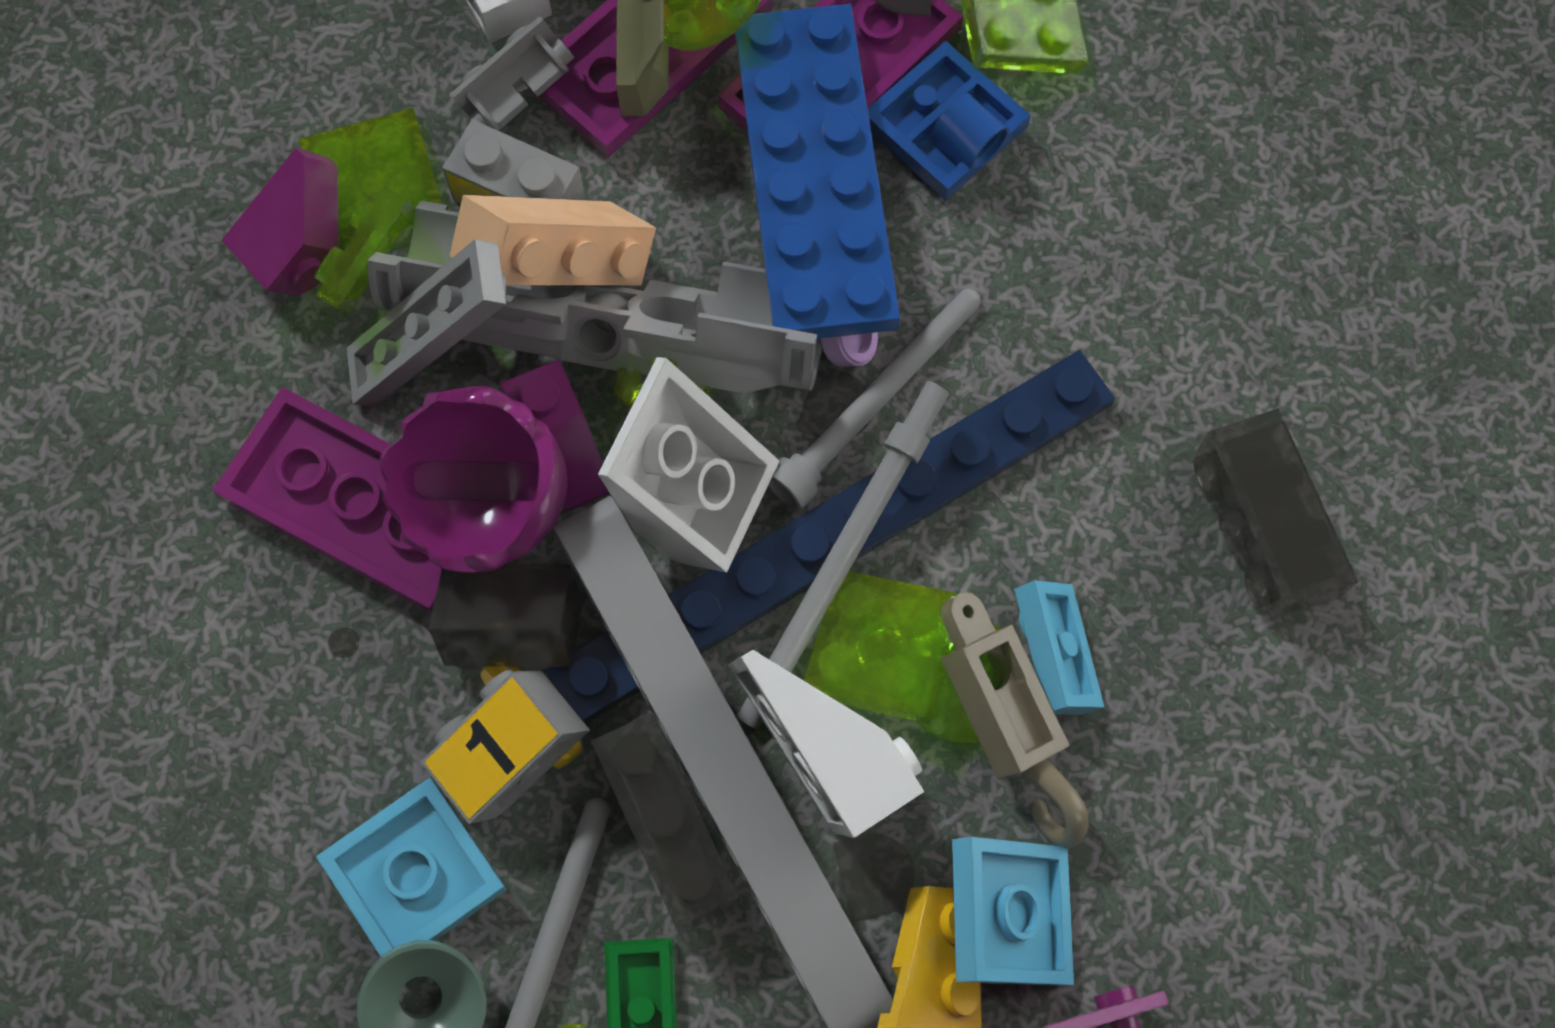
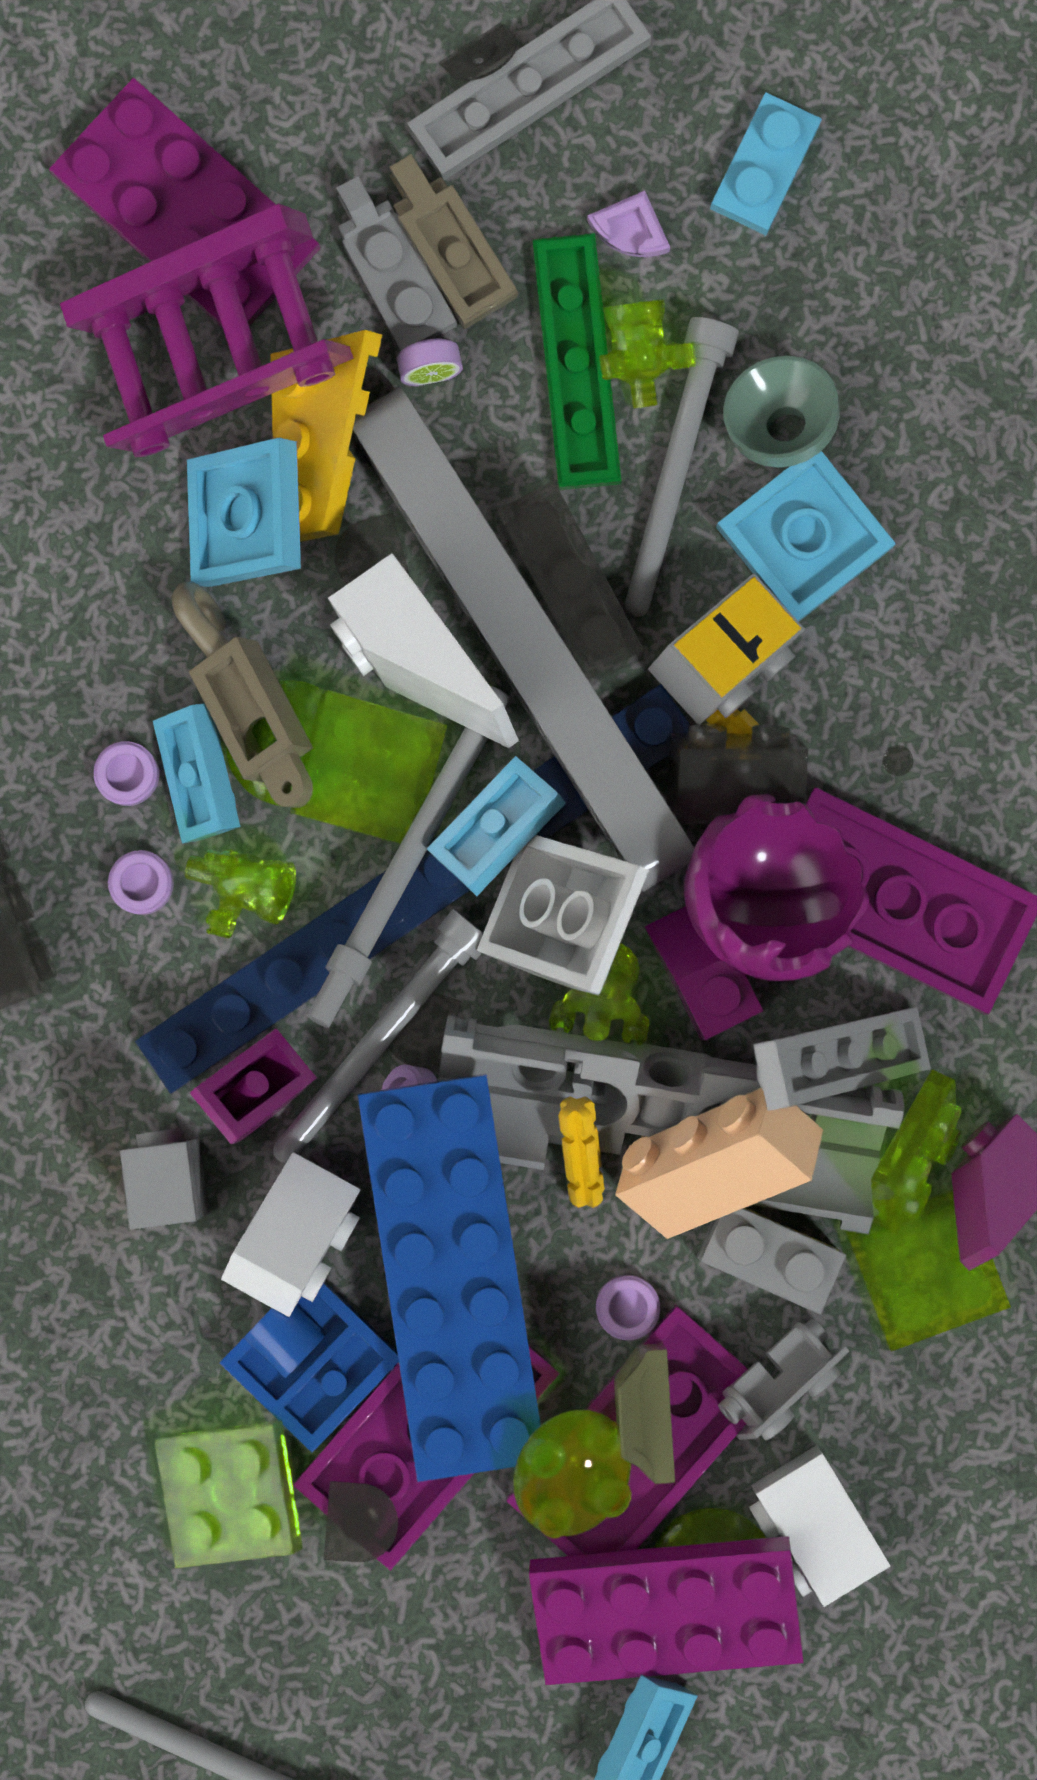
camera: 175 degrees right, 15 degrees up
(652, 156) = (627, 1307): none -> lavender tile
(686, 275) = (581, 1151): none -> yellow axle
(754, 571) = (496, 825): none -> medium azure plate
(962, 208) = (291, 1235): none -> white brick
(1005, 330) = (253, 1086): none -> magenta slope
(1010, 540) = (243, 883): none -> clear neon green piece
(1085, 256) = (163, 1179): none -> light grey brick
(1112, 549) = (140, 882): none -> lavender tile
(1130, 656) = (126, 773): none -> lavender tile

